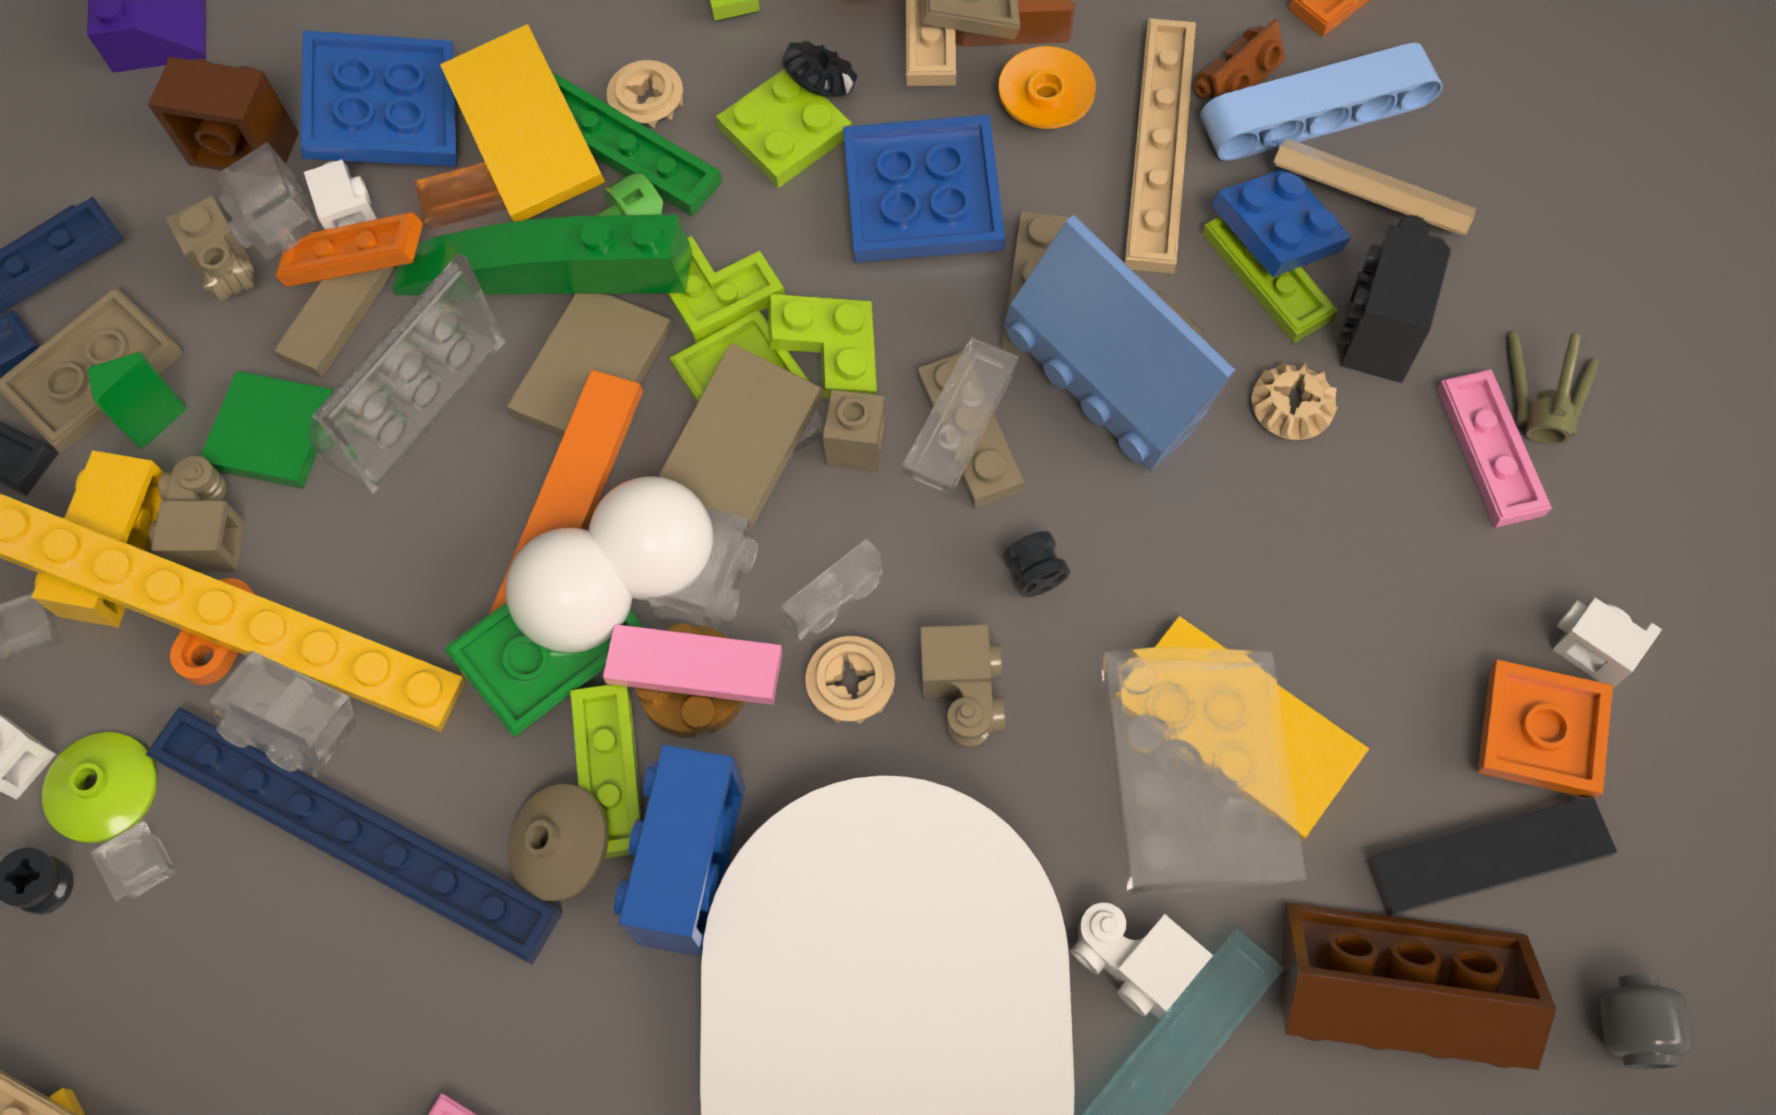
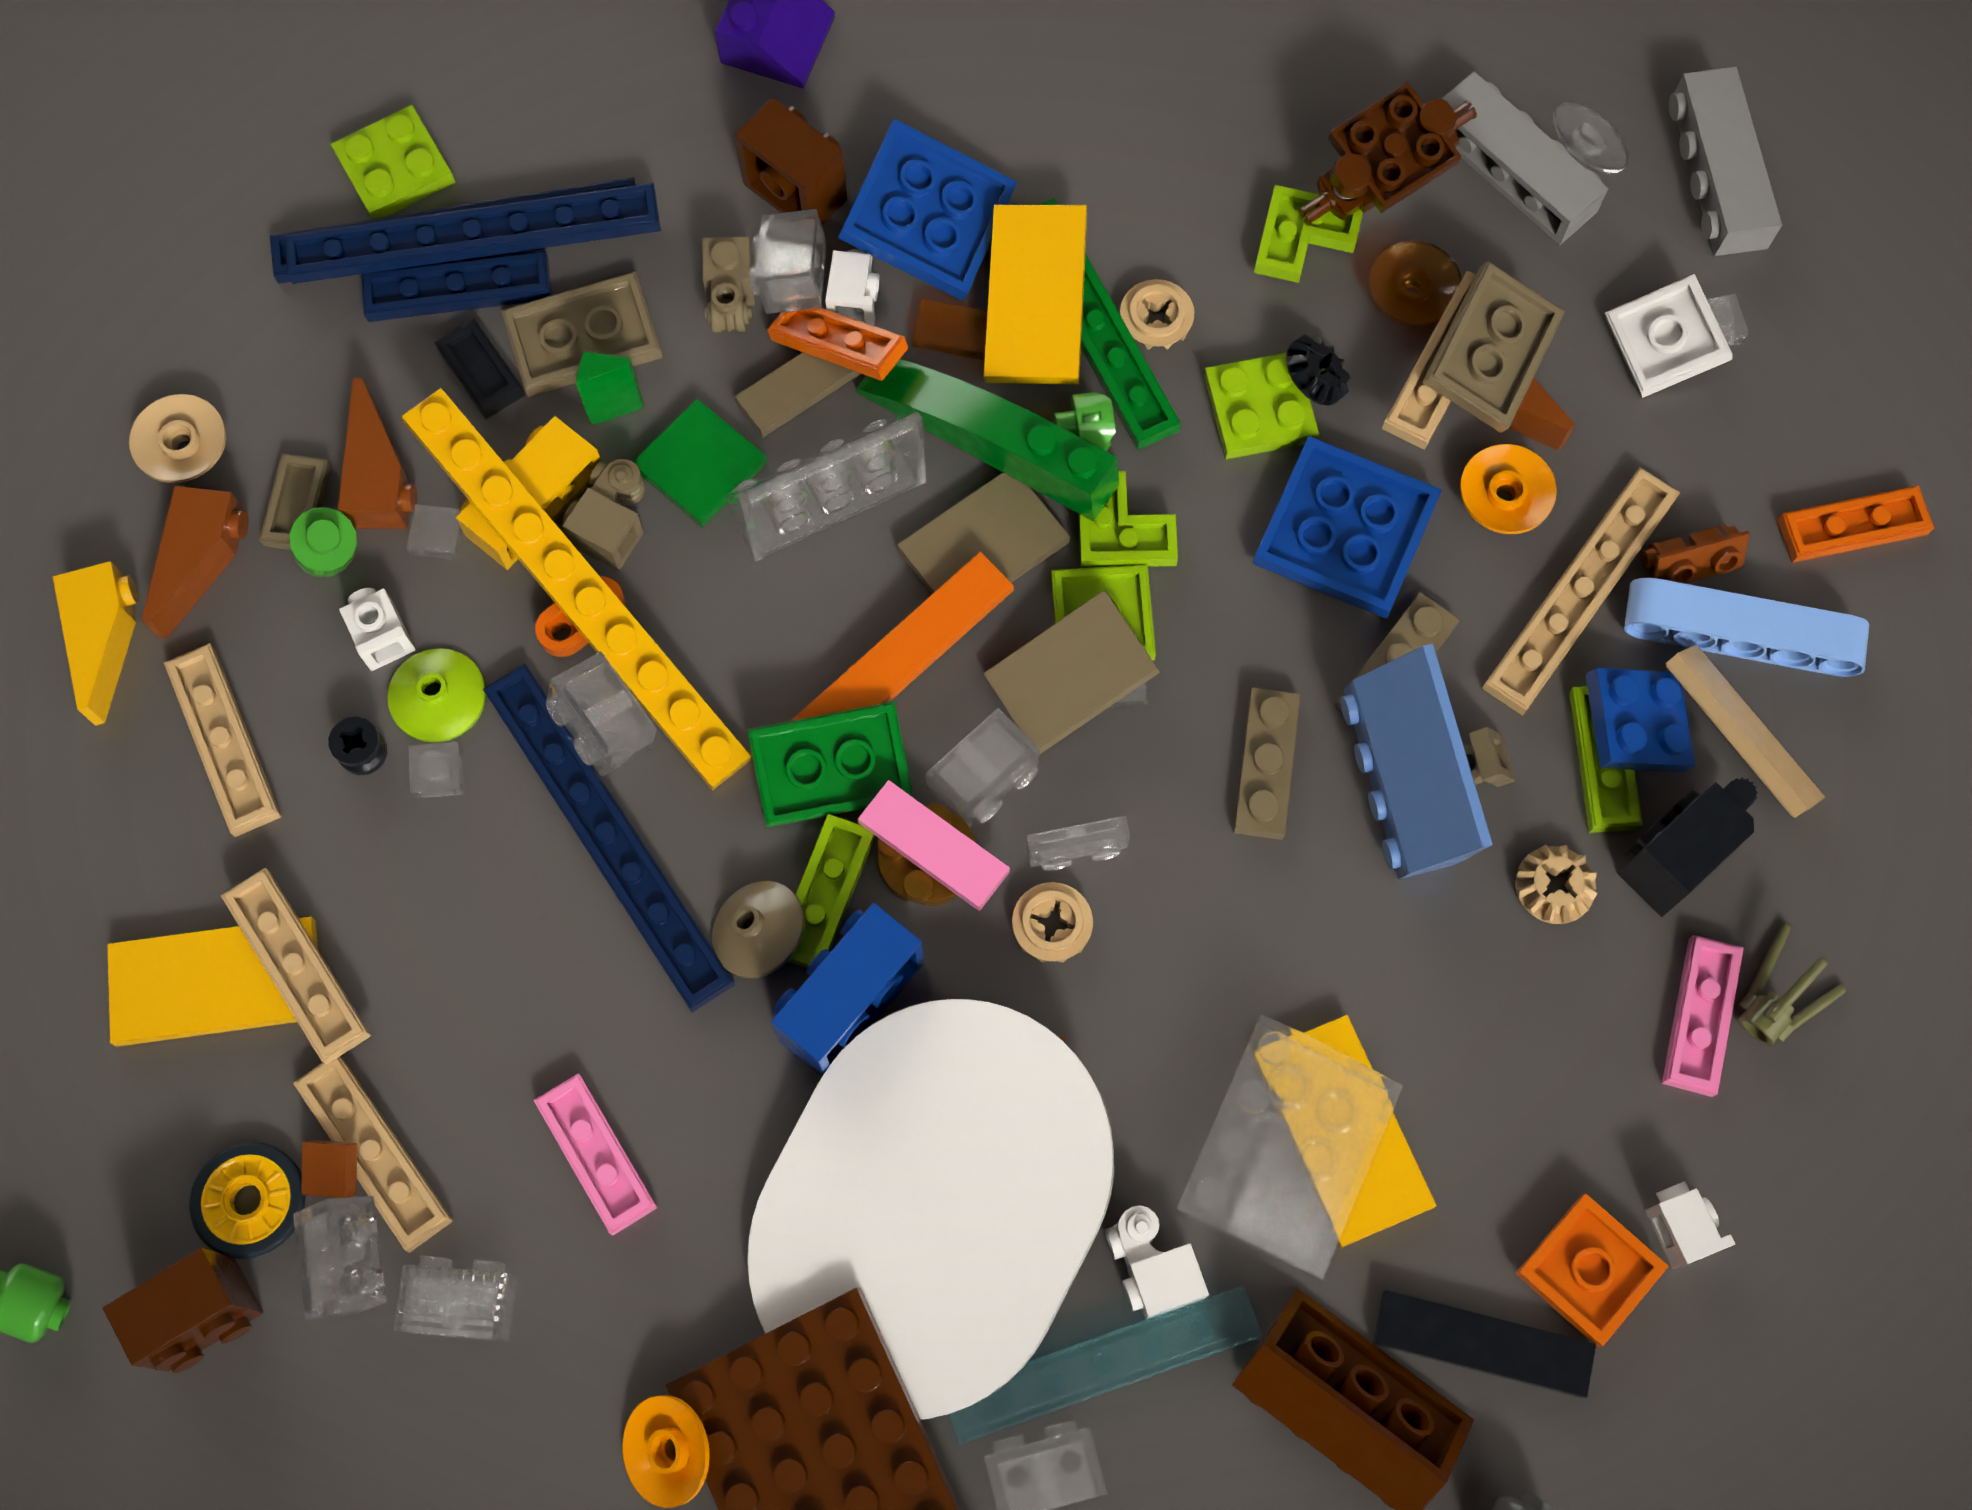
camera: 25 degrees right, 5 degrees up
(565, 592) = (868, 732): white piece -> none
(653, 535) = (953, 723): white piece -> none
(836, 330) = (1204, 624): lime plate -> none
(855, 430) = (1168, 716): dark tan brick -> none
(960, 415) = (1262, 750): clear tile -> none
(961, 665) = (1145, 959): dark tan brick -> none
(1036, 564) = (1254, 909): black wheel -> none

